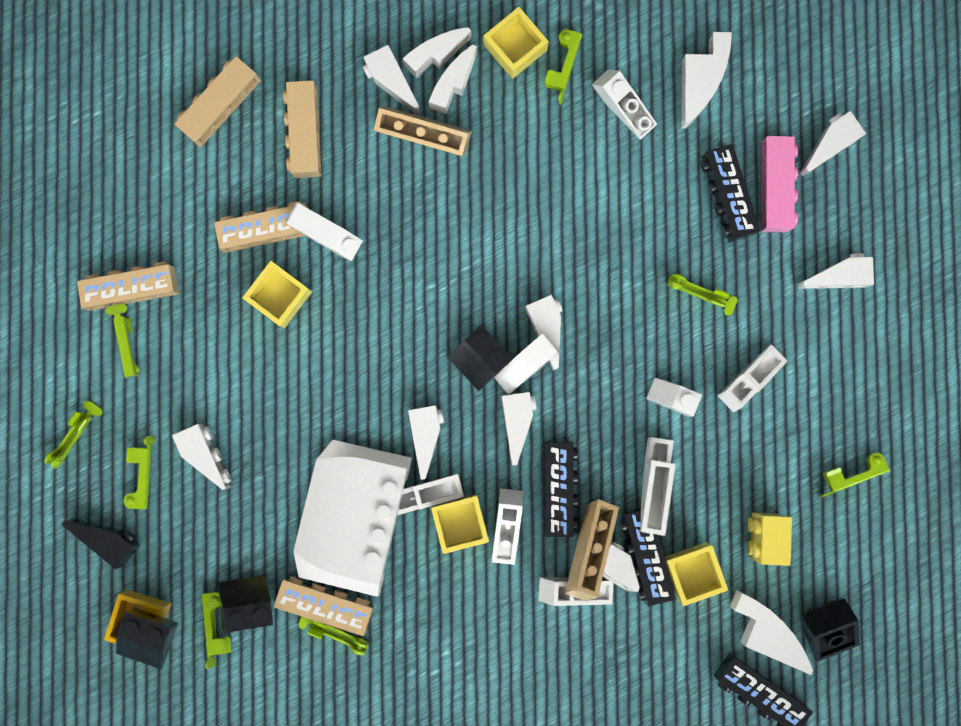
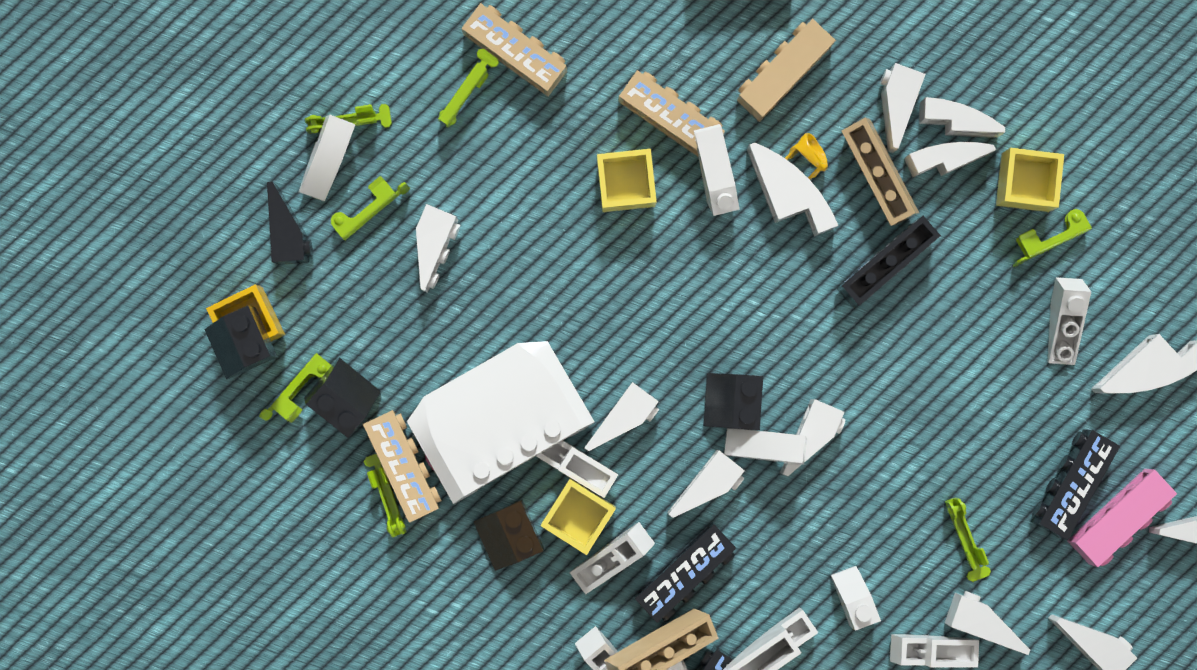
camera: 45 degrees right, 0 degrees up
(82, 471) = (326, 157): none -> white slope
(369, 160) = (812, 151): none -> yellow piece
(381, 198) = (789, 190): none -> white slope
(432, 578) = (509, 535): none -> dark brown slope
(483, 178) = (888, 262): none -> black brick
(759, 332) = (980, 620): none -> white slope

